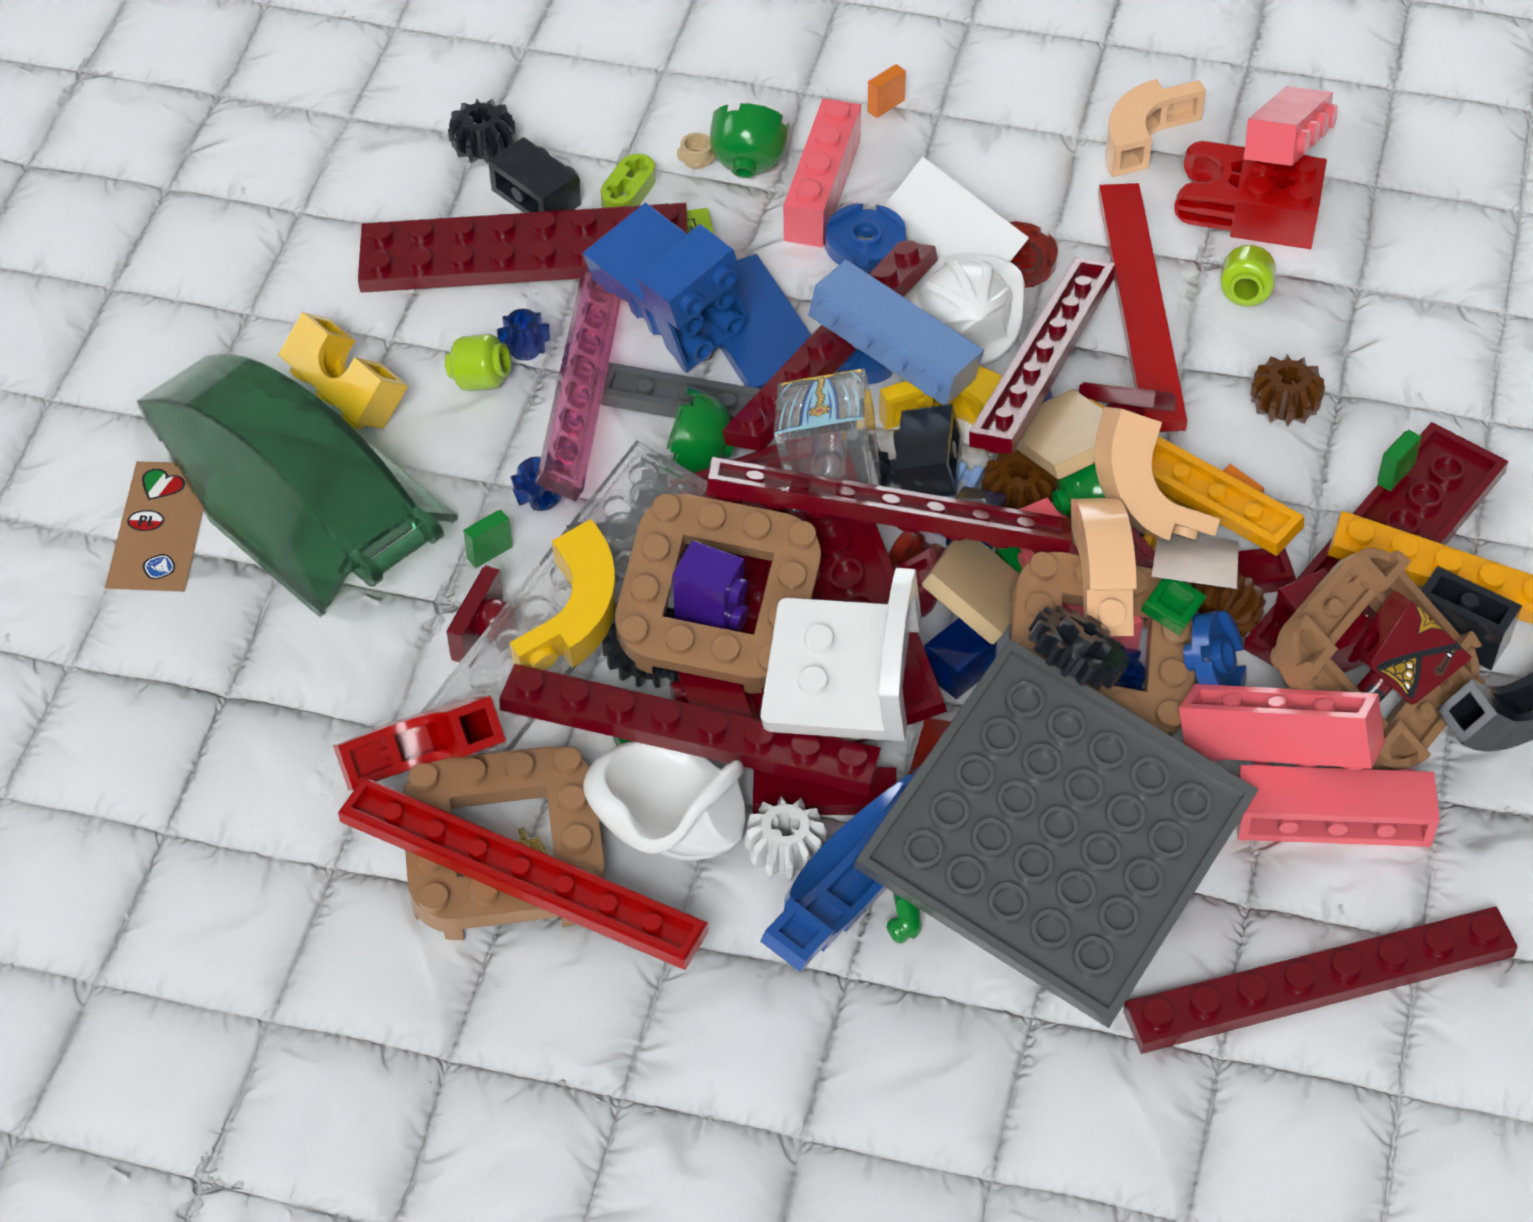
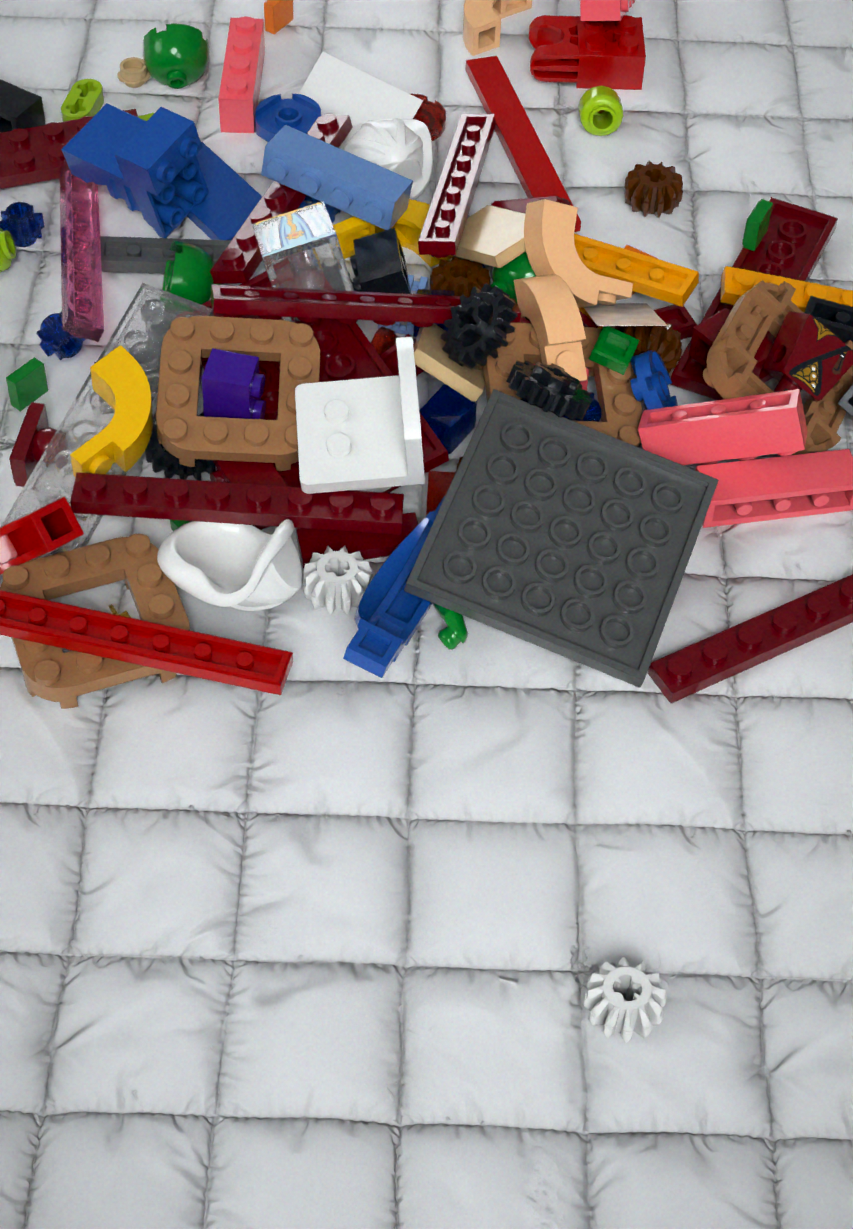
camera: 15 degrees left, 0 degrees up
(1012, 554) = (479, 326): none -> black gear

